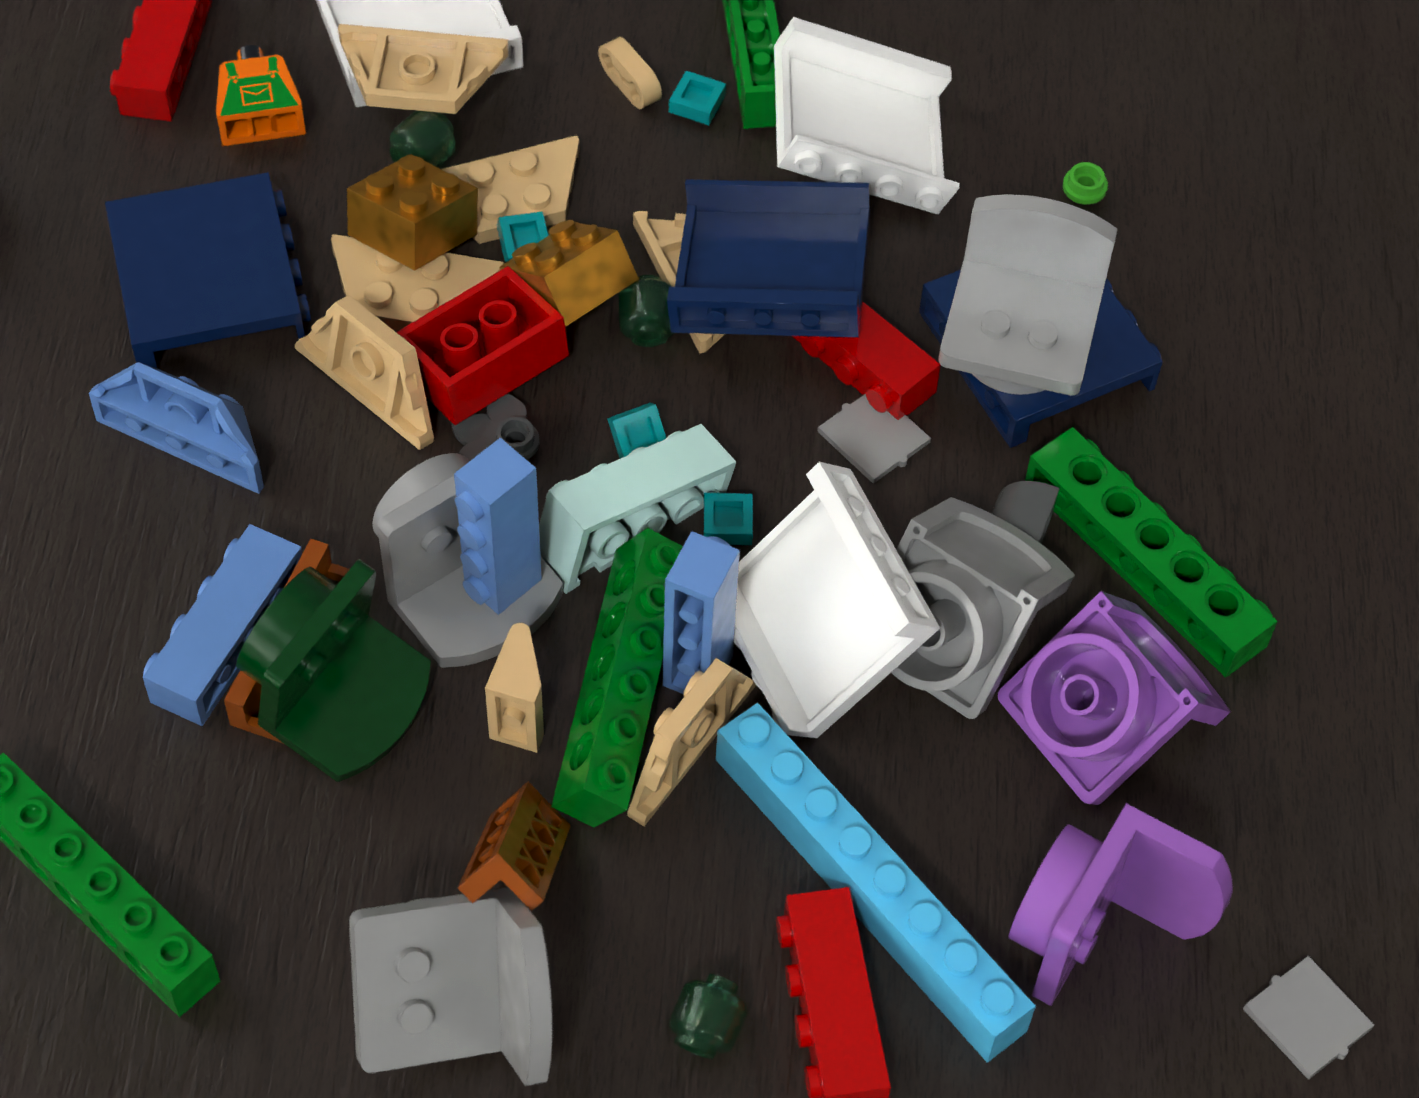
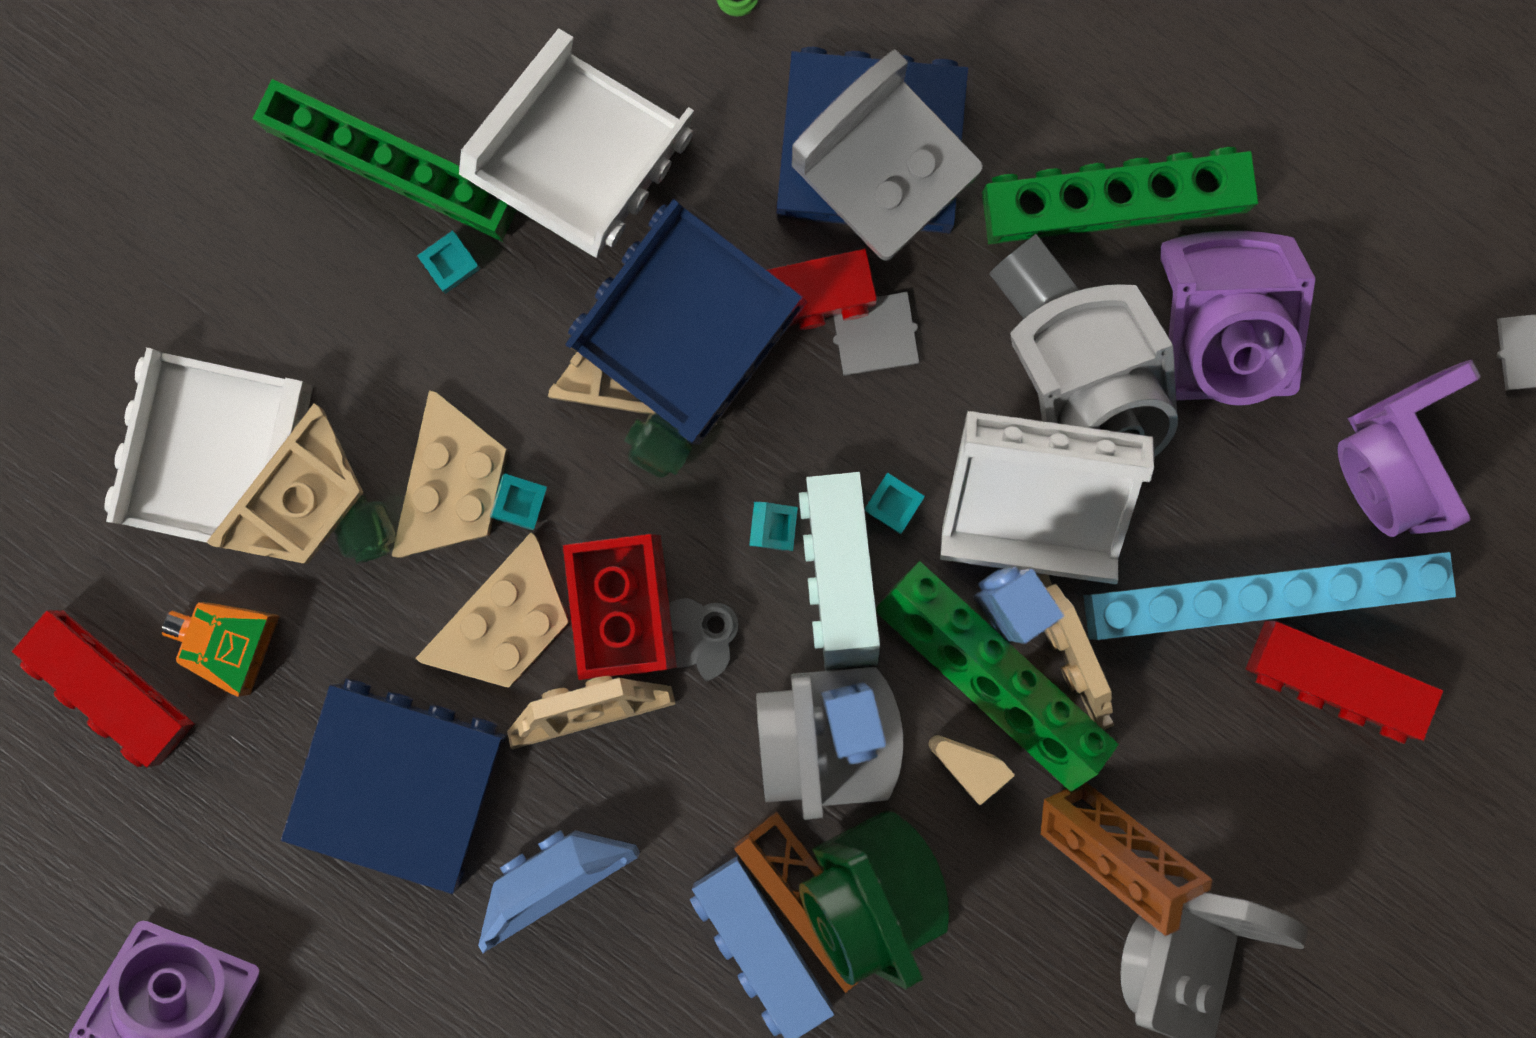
camera: 50 degrees left, 30 degrees up
(412, 211) = (446, 586): pearl gold brick -> none
(575, 267) = (593, 494): pearl gold brick -> none
(630, 72) = (386, 303): tan beam -> none
(708, 1016) = (1303, 778): clear green head -> none

